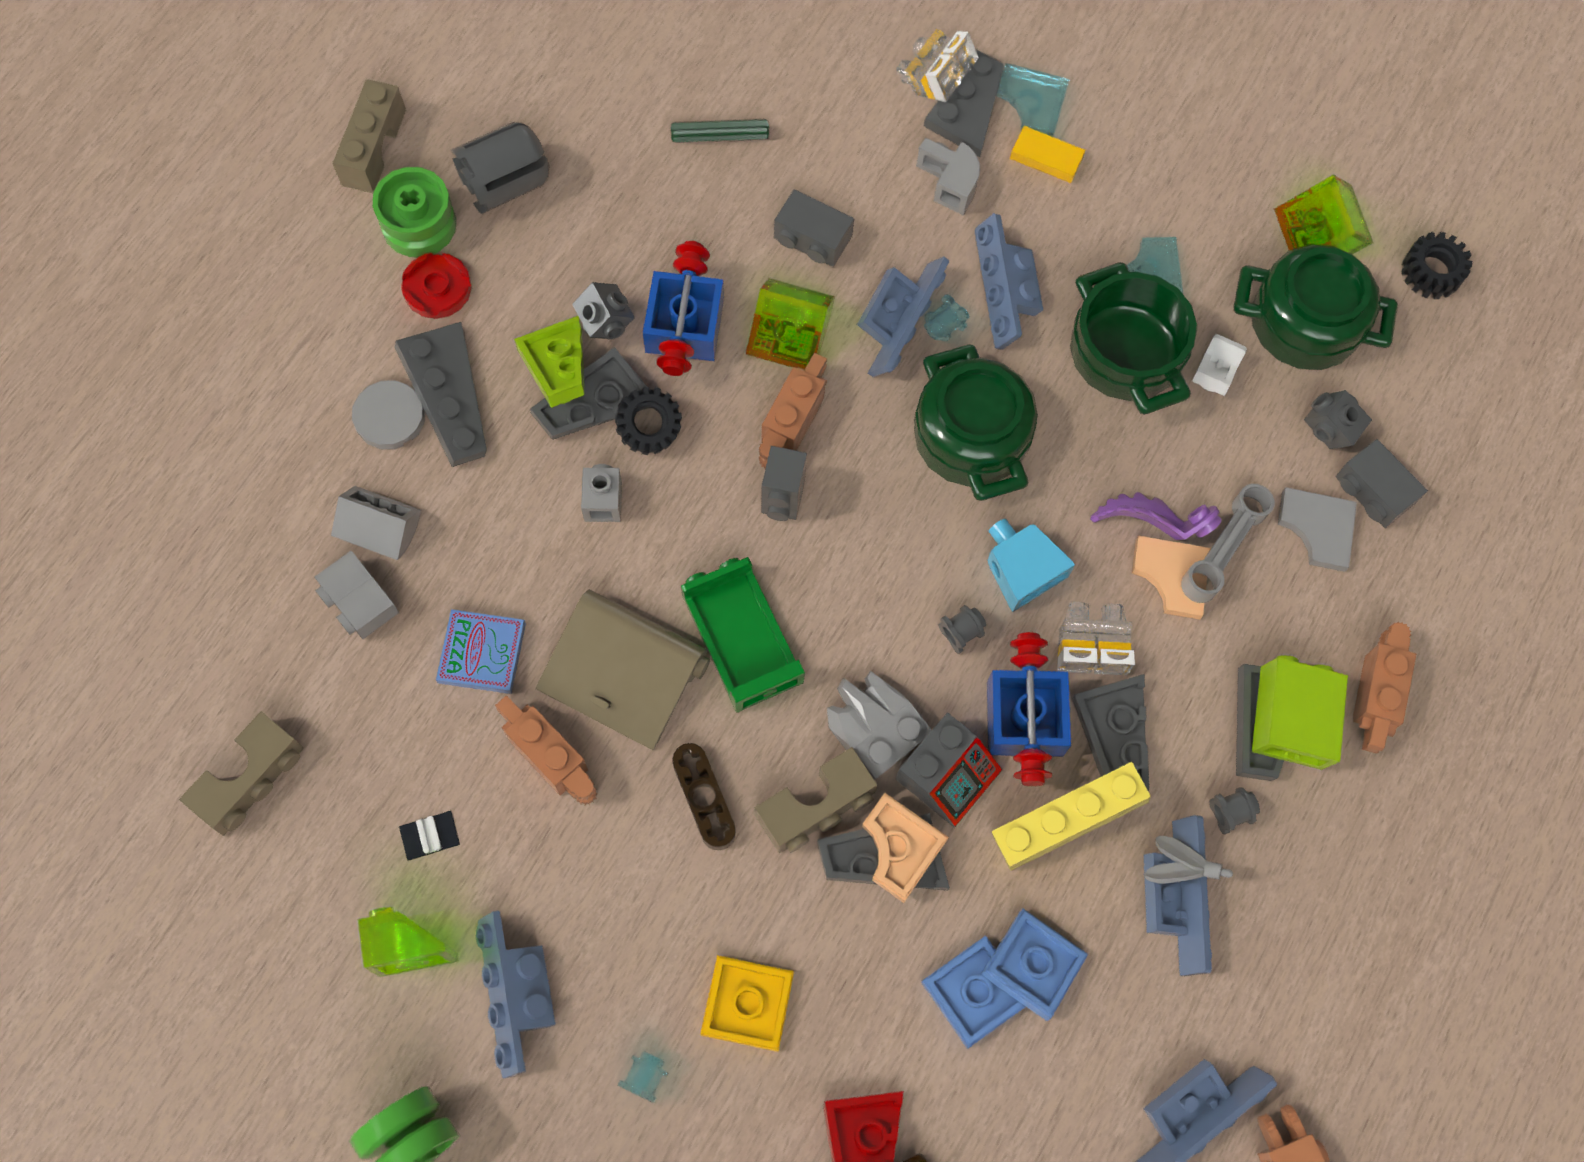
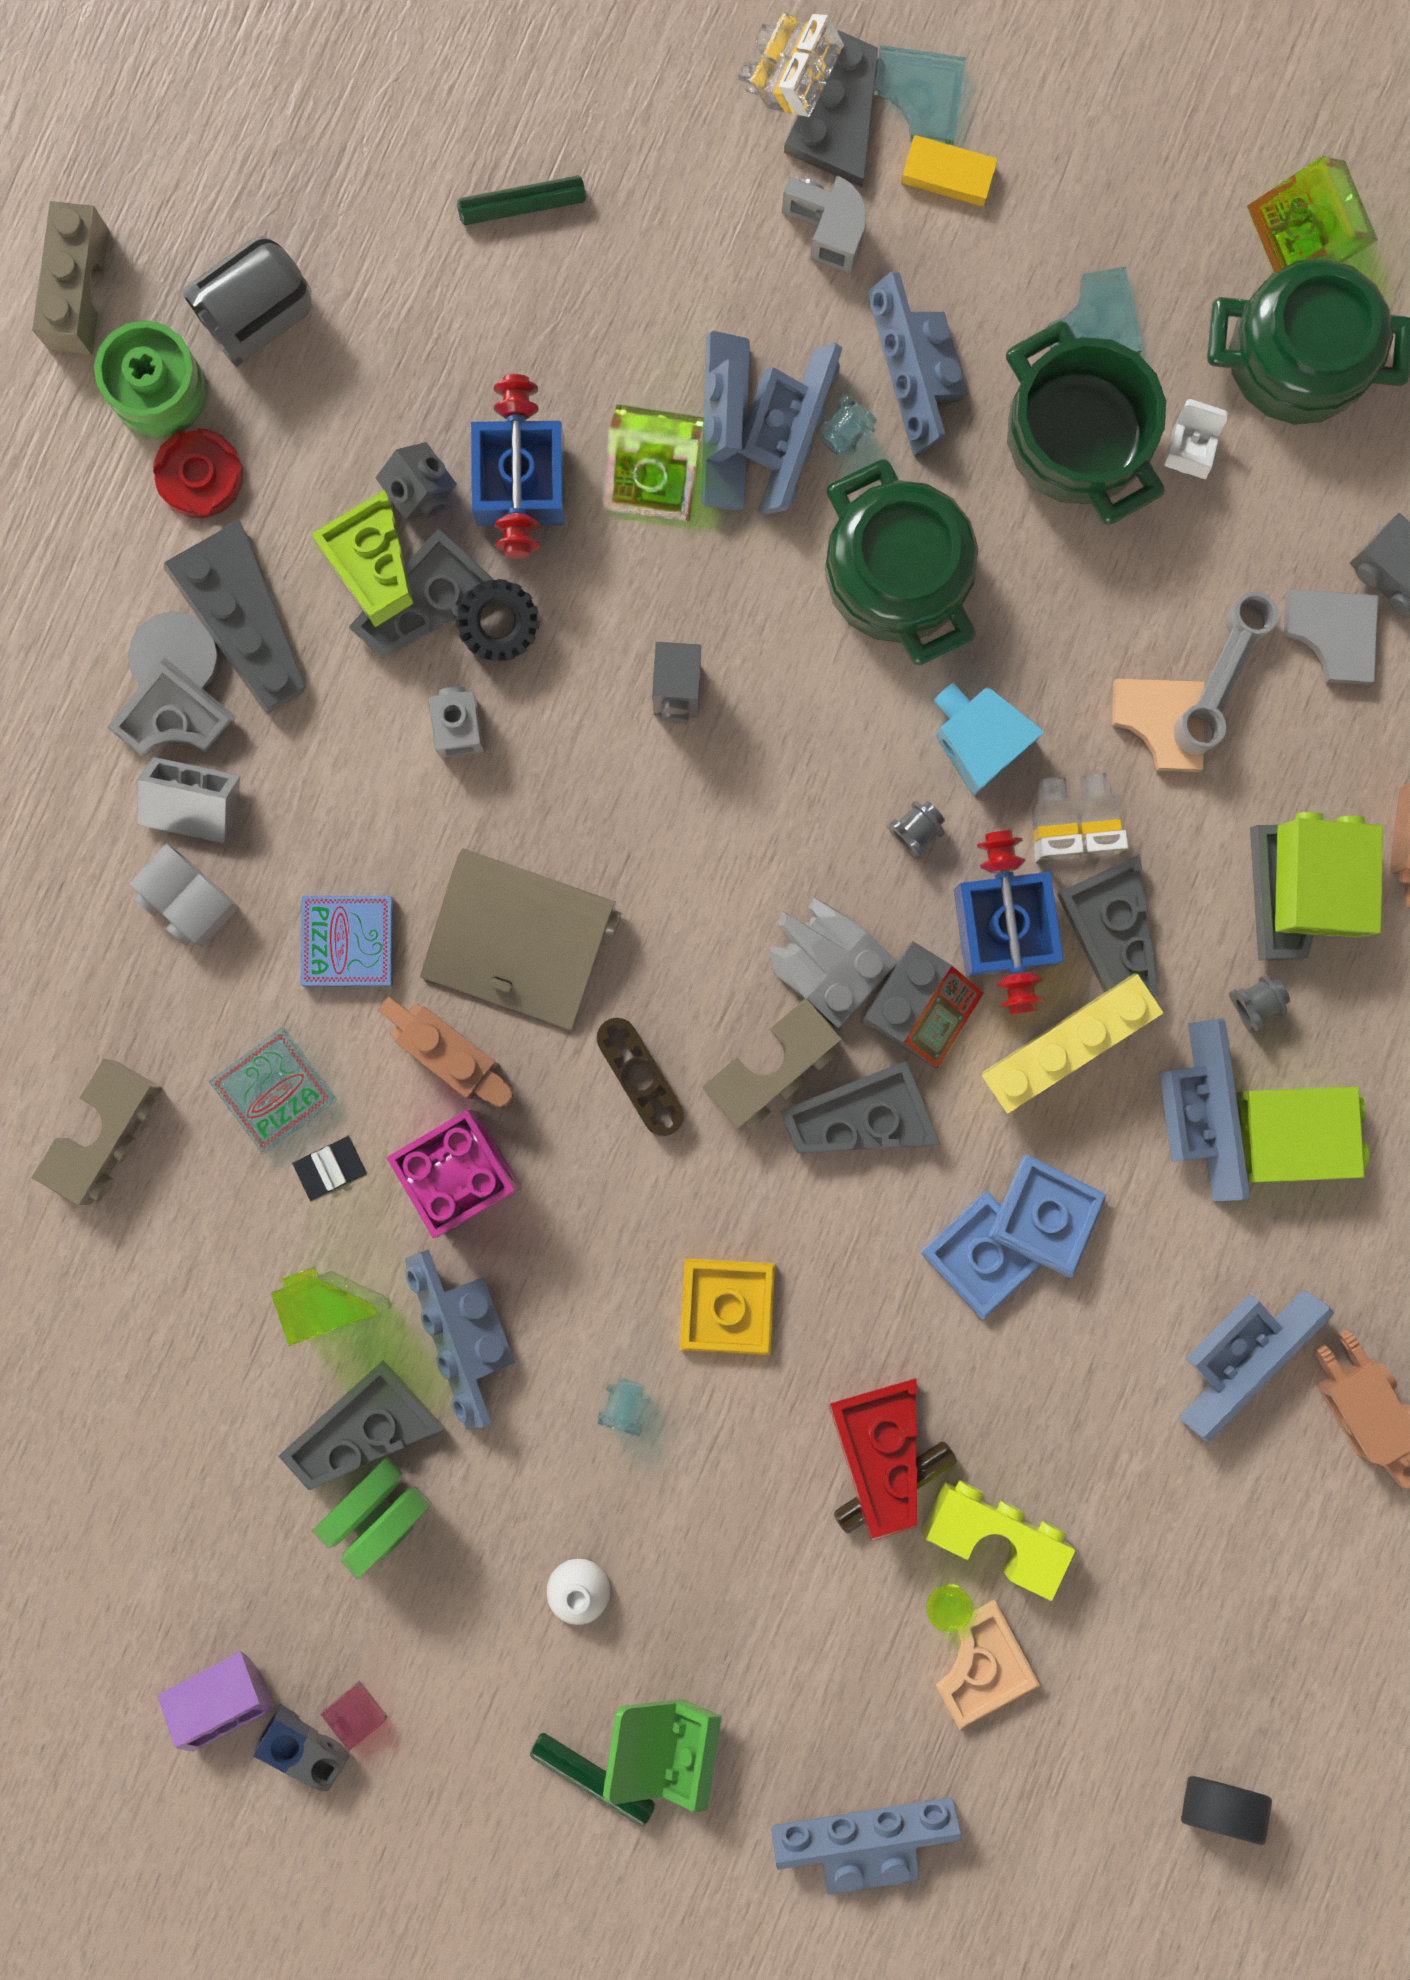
camera: 10 degrees left, 15 degrees up
(375, 451) = (170, 710): none -> light grey tile
(395, 763) = (273, 1090): none -> clear light blue tile
(417, 1056) = (361, 1427): none -> dark grey wing
(533, 848) = (454, 1173): none -> dark pink brick
(741, 634) = (653, 873): green panel -> none
(794, 408) = (674, 579): nougat hinge -> none
(813, 228) = (662, 325): dark grey brick -> none
(850, 302) = (724, 421): none -> sand blue bracket
(903, 844) = (881, 1103): light nougat tile -> none
(1155, 511) = (1136, 645): medium lavender plant -> none
(1187, 864) = (1213, 1082): light grey piece -> none
(1262, 925) = (1303, 1134): none -> lime brick
(1337, 419) = (1348, 491): dark grey brick -> none

